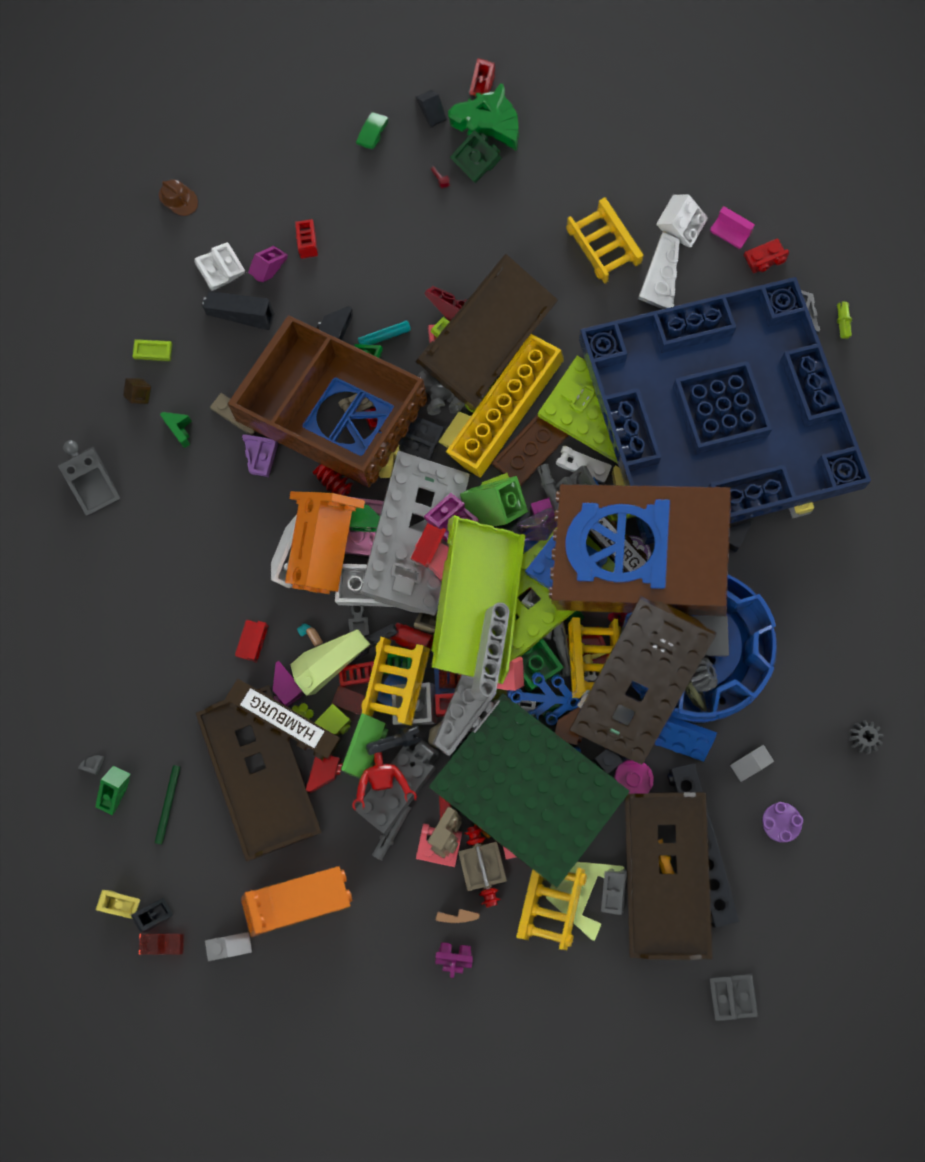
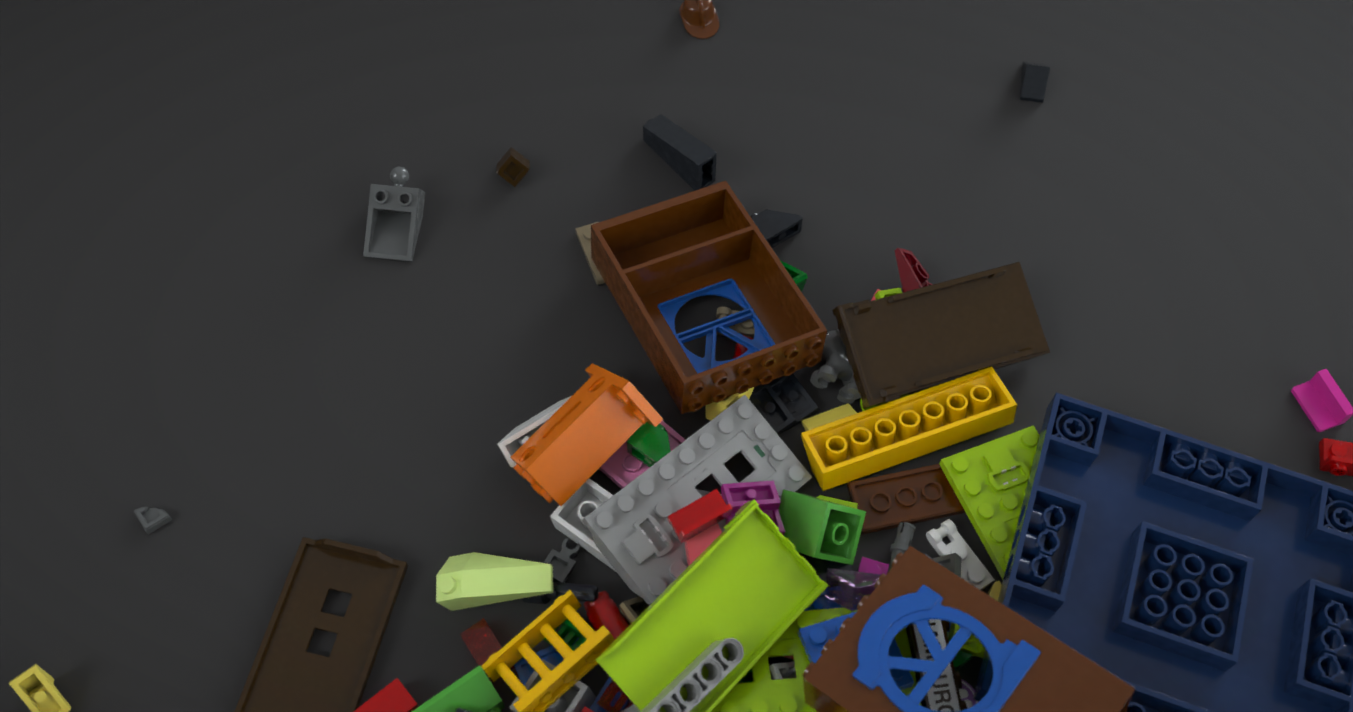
camera: 30 degrees right, 15 degrees down
(112, 789) = (147, 559): green slope -> none
(152, 350) = (560, 139): lime tile -> none
(167, 804) = (190, 621): dark green bar -> none
(176, 423) = (526, 224): green slope -> none
(219, 266) = (692, 102): white slope -> none
(251, 640) = (428, 501): red panel -> none
(260, 454) = (591, 308): medium lavender wing -> none
(267, 263) = (743, 125): magenta slope -> none
(283, 719) = (388, 612): dark brown brick -> none
(285, 687) = (420, 576): magenta slope -> none
(302, 710) = (418, 622): lime plant -> none
(306, 249) = (802, 129): red slope -> none
(311, 632) = (499, 536): medium nougat arm -> none
(333, 480) = (649, 383): red piece -> none
(334, 721) = (439, 656): lime slope -> none
(343, 677) = (498, 611): red slope -> none
(371, 130) = (948, 66): green slope -> none
(385, 333) = (823, 270): teal axle -> none
(443, 181) = (997, 157): dark red hand -> none
(476, 156) = (1053, 152): dark green plate -> none
(483, 77) = (1112, 81): red slope -> none
(488, 114) = (1092, 120): green animal -> none
(614, 226) = (1171, 312): yellow fence -> none
(660, 279) = (1199, 400): white wing -> none
(682, 219) = (1262, 356): white slope -> none

